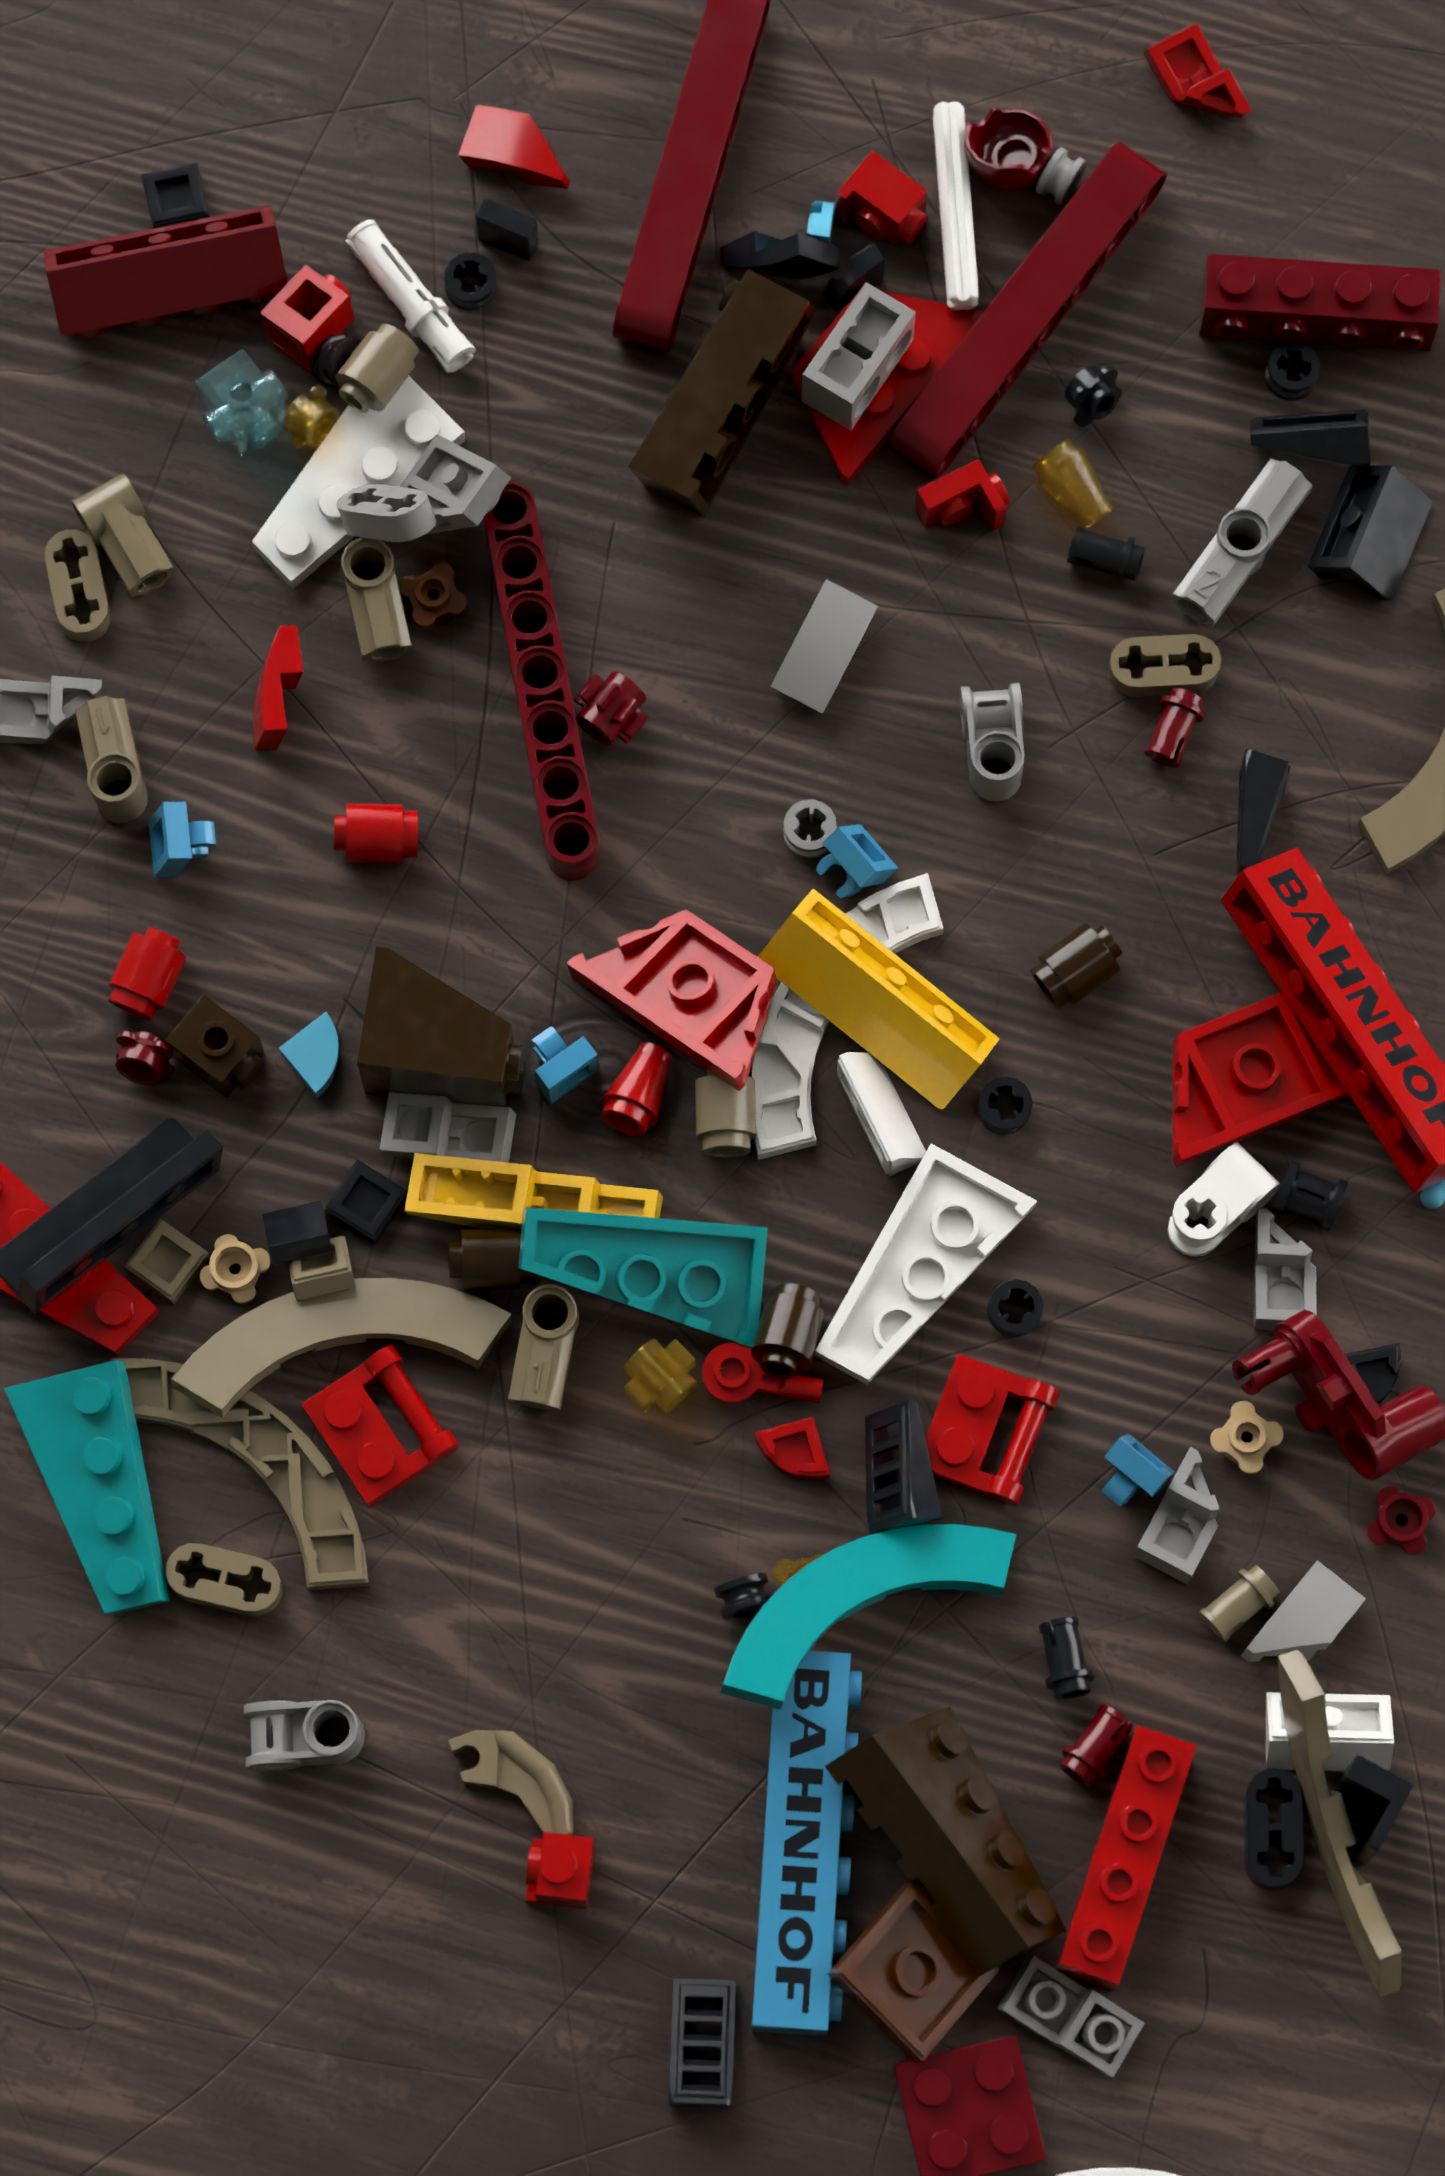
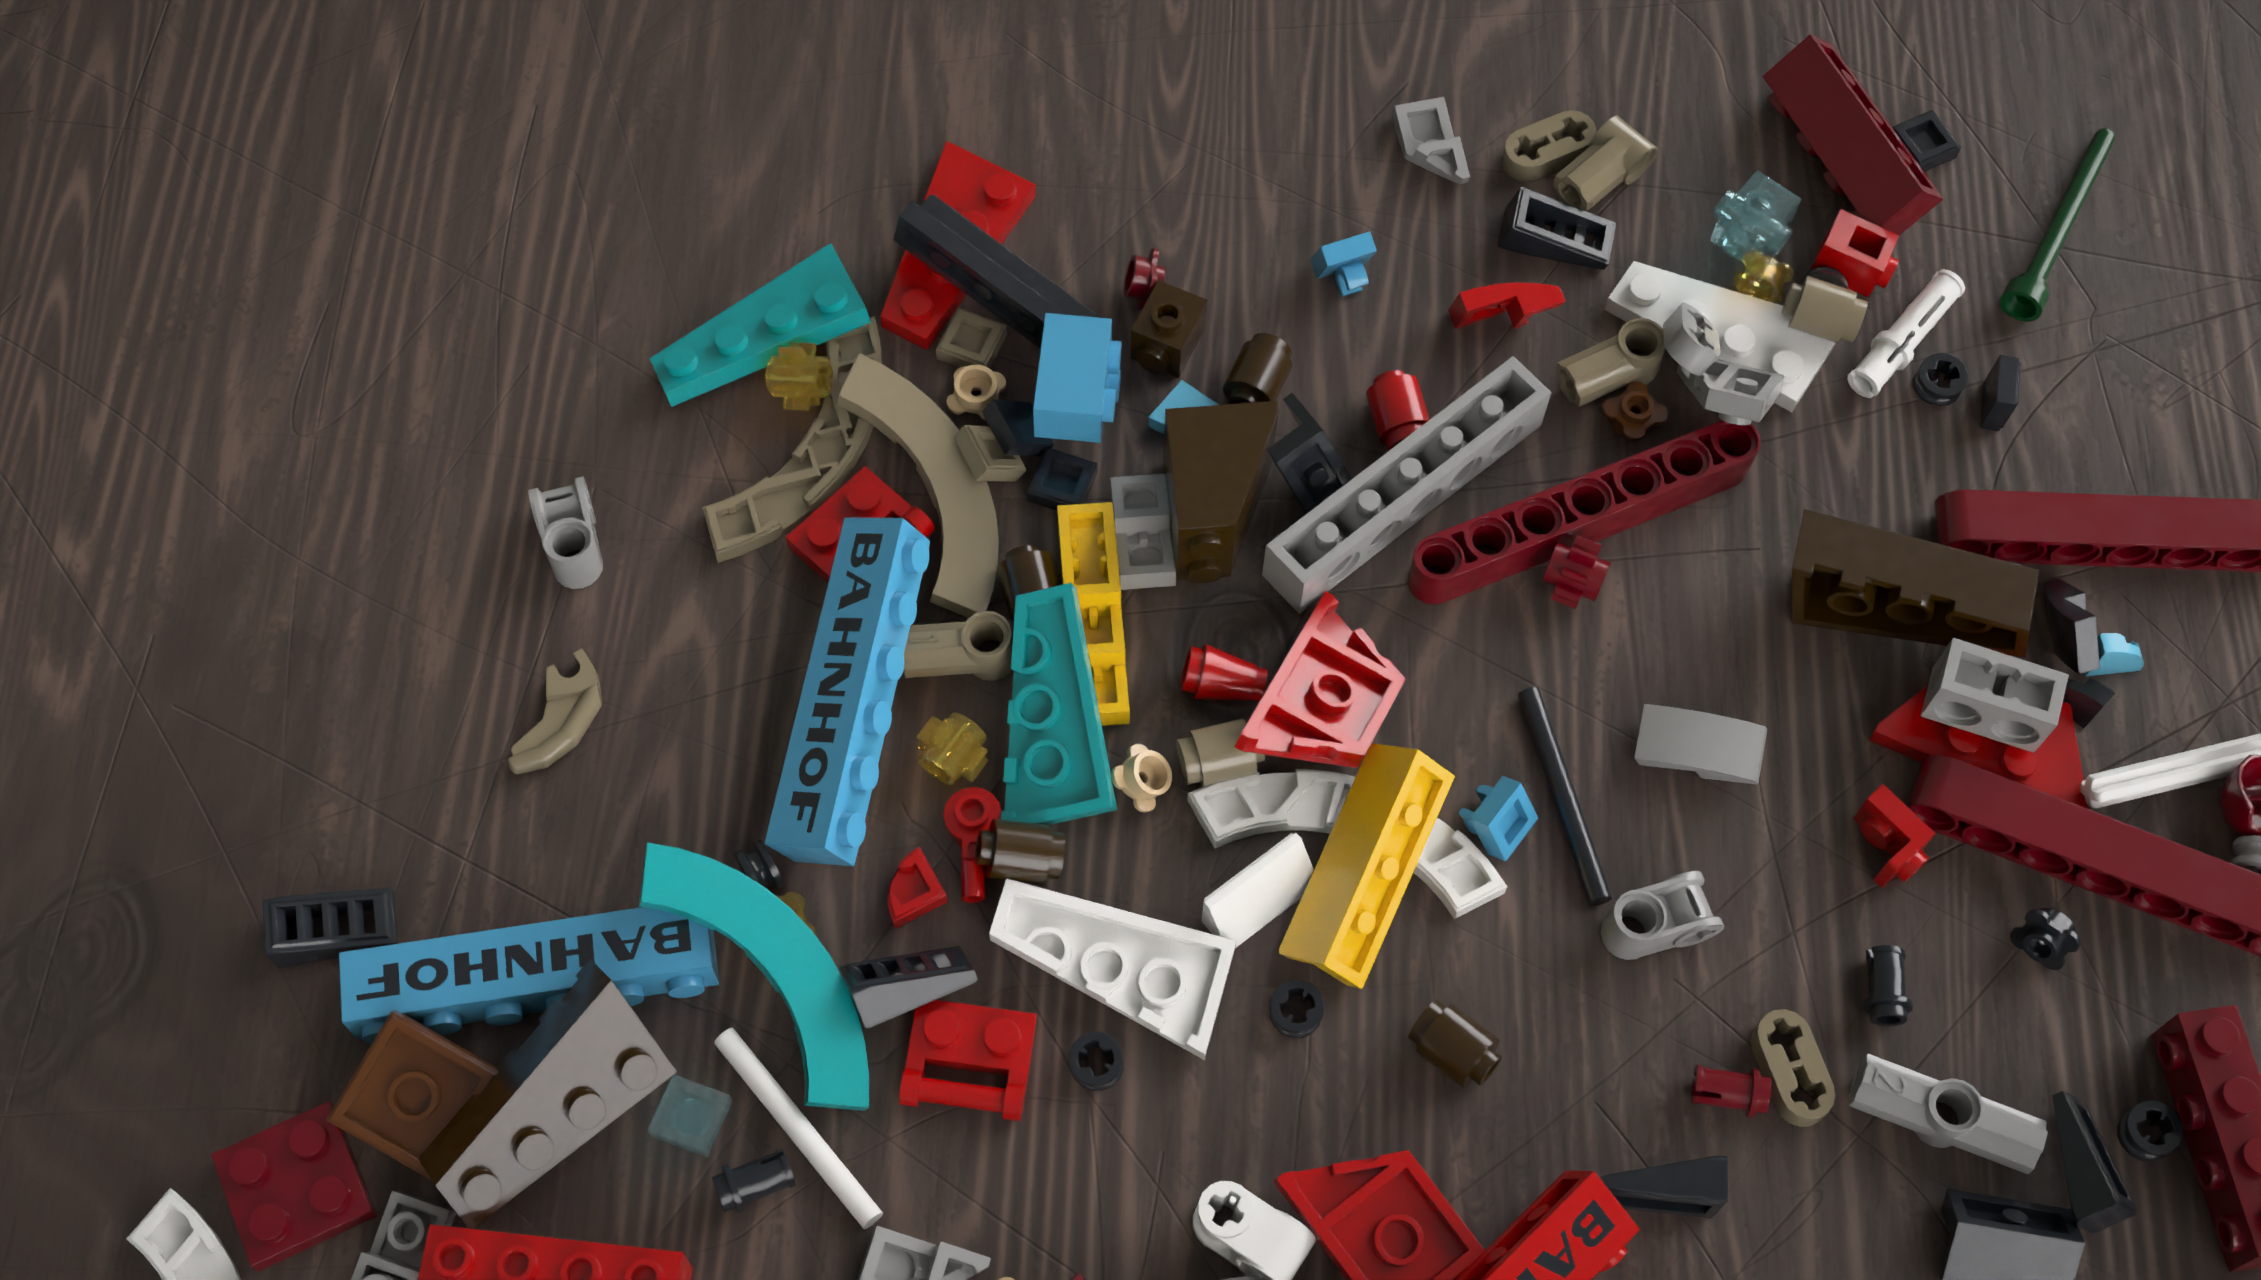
camera: 75 degrees right, 10 degrees down
(111, 757) = (1391, 200): dark tan piece -> none
(146, 973) = (1219, 266): red brick -> none
(173, 642) = (1535, 241): none -> black slope
(177, 1451) = (799, 376): none -> clear yellow gear
(227, 1565) = (709, 444): dark tan beam -> none
(278, 1153) = (1076, 378): none -> dark azure brick
(296, 966) = (1259, 370): none -> dark brown brick
(394, 161) = (2028, 293): none -> dark green piece
(439, 932) = (1308, 459): none -> black panel
(473, 847) = (1405, 484): none -> light grey brick
(513, 144) = (2083, 382): slope -> none
(560, 1870) = (470, 755): red brick -> none
(562, 1065) = (1227, 607): dark azure tile -> none
(578, 1460) = (848, 692): none -> dark azure brick
(732, 1193) = (1154, 773): none -> tan plate
(812, 809) = (1521, 754): light grey bush -> none
(842, 792) = (1564, 797): none -> black bar
(883, 201) = (2162, 700): red brick -> none
(989, 1707) = (690, 1115): none -> clear light blue plate
(1017, 1609) = (798, 1128): none -> white bar
(1073, 483) = (1949, 936): clear yellow cone -> none
(1095, 1746) = (669, 1228): dark red pin -> none
(1136, 1468) = (955, 1208): dark azure tile -> none

